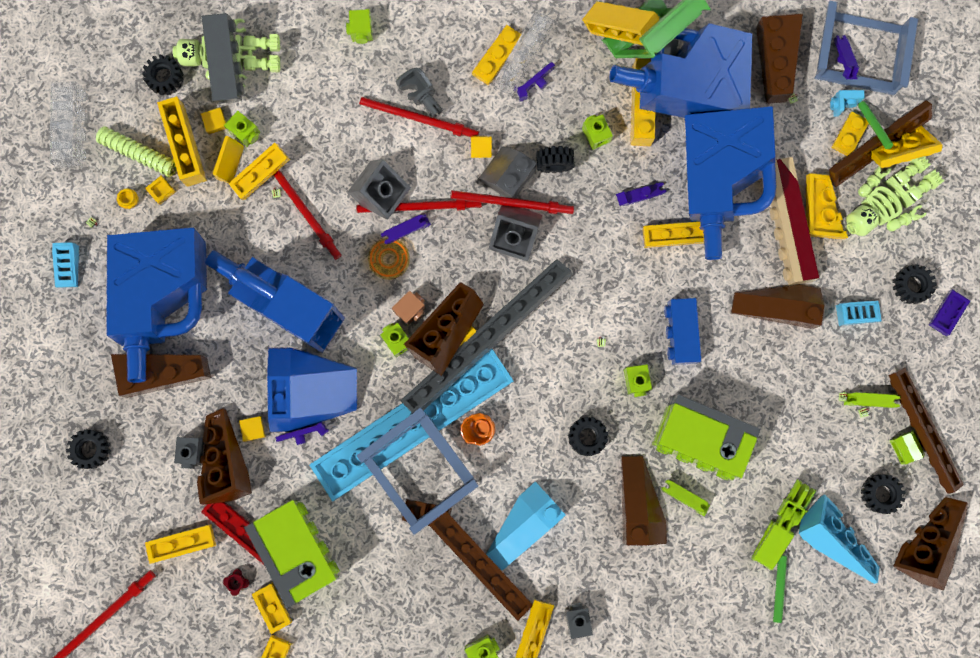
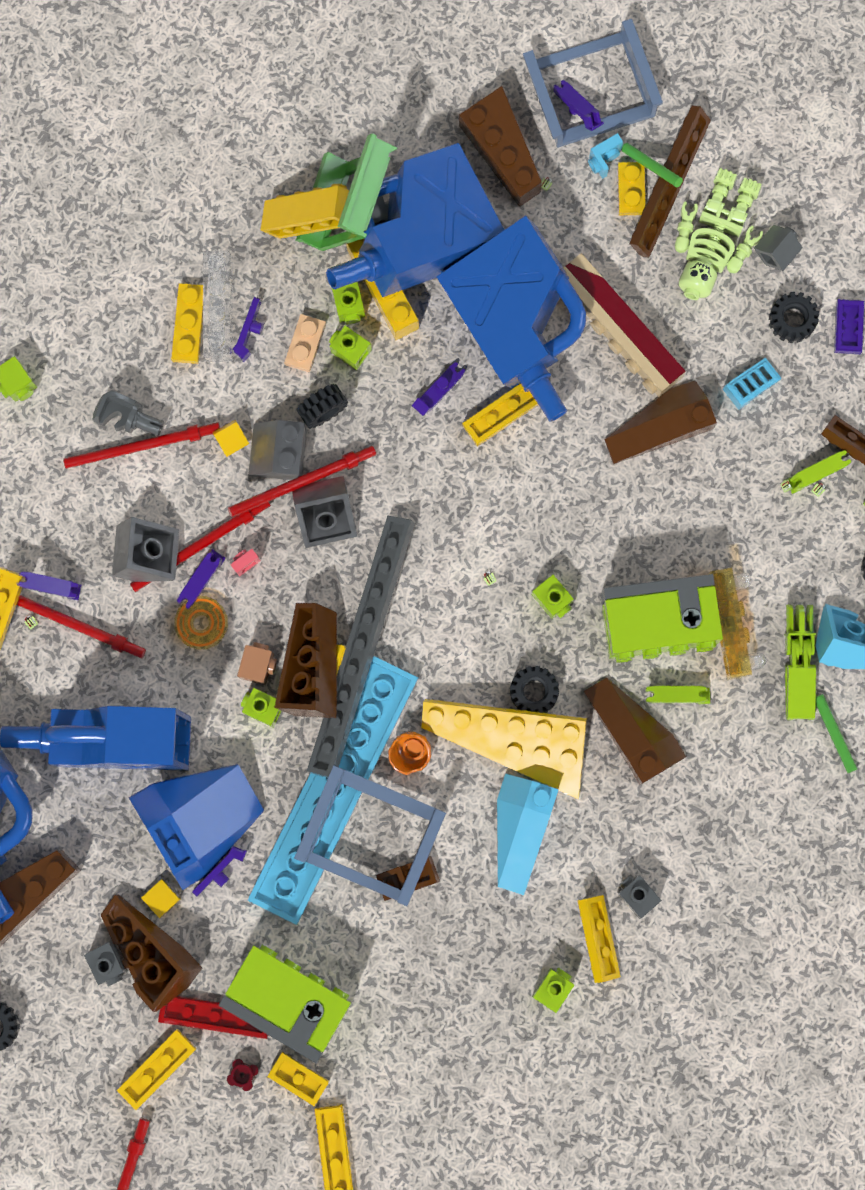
camera: 20 degrees left, 0 degrees up
(302, 175) = (50, 585): none -> dark purple piece
(442, 234) = (244, 561): none -> coral plate
(481, 565) = (498, 897): reddish brown plate -> none
(563, 469) = (527, 741): none -> yellow wing
(568, 112) = (305, 343): none -> light nougat plate
(613, 101) = (349, 303): none -> lime brick
(683, 331) = (572, 515): blue brick -> none
(743, 489) = (735, 636): none -> clear yellow piece
(821, 209) = (646, 291): yellow wing -> none
(908, 148) = (703, 169): yellow wing -> none
(931, 230) = (778, 247): none -> dark grey brick

